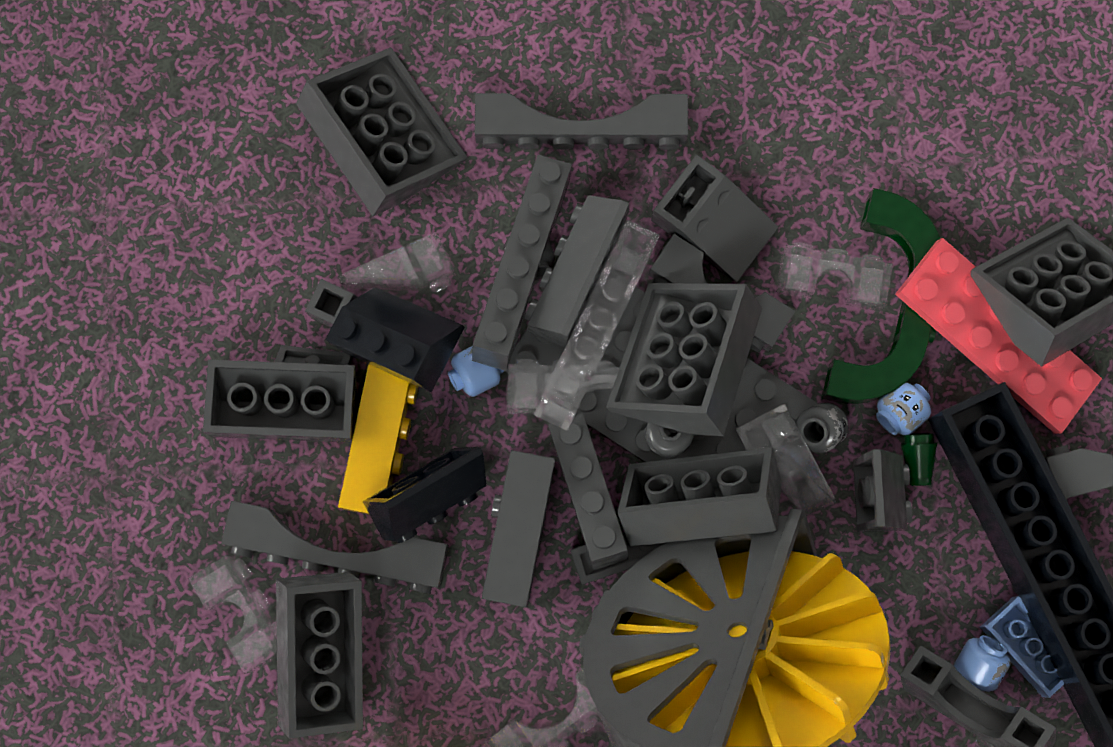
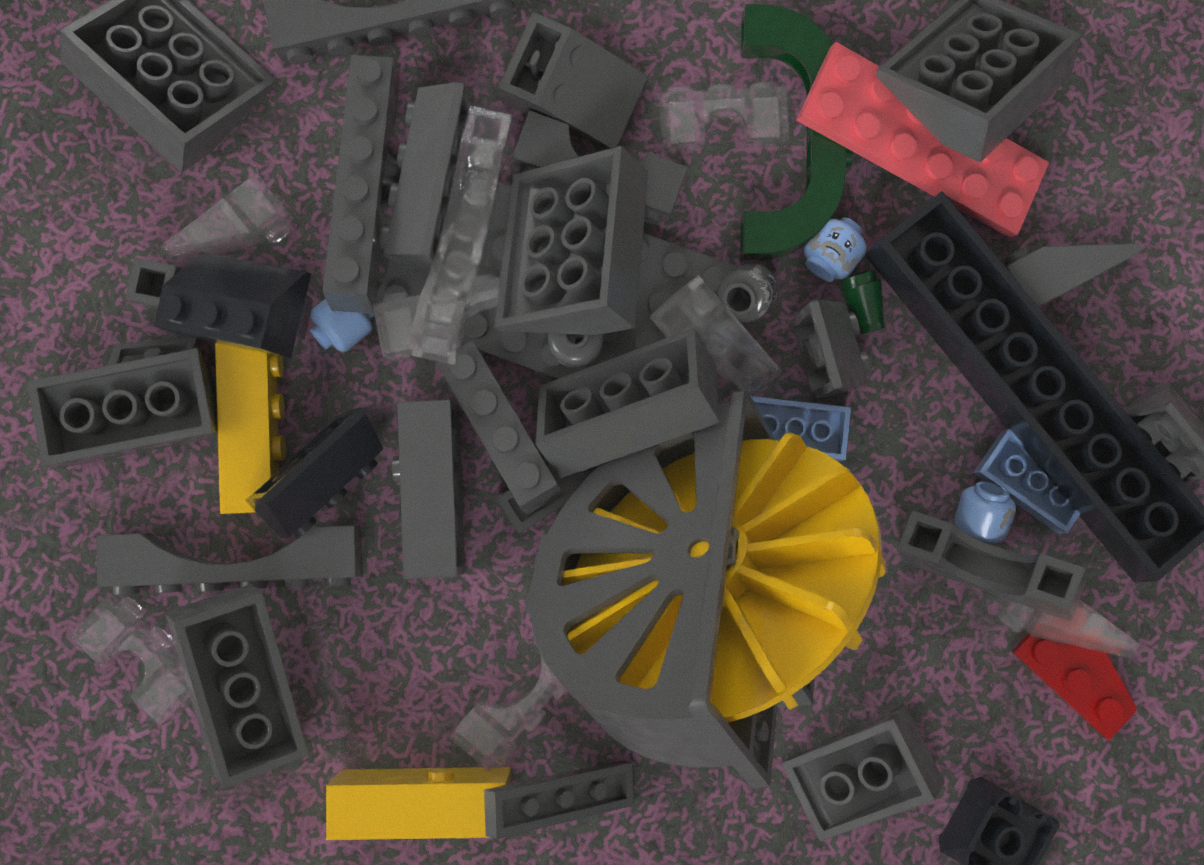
camera: 15 degrees left, 5 degrees up
(858, 554) = (819, 425): none -> light blue piece

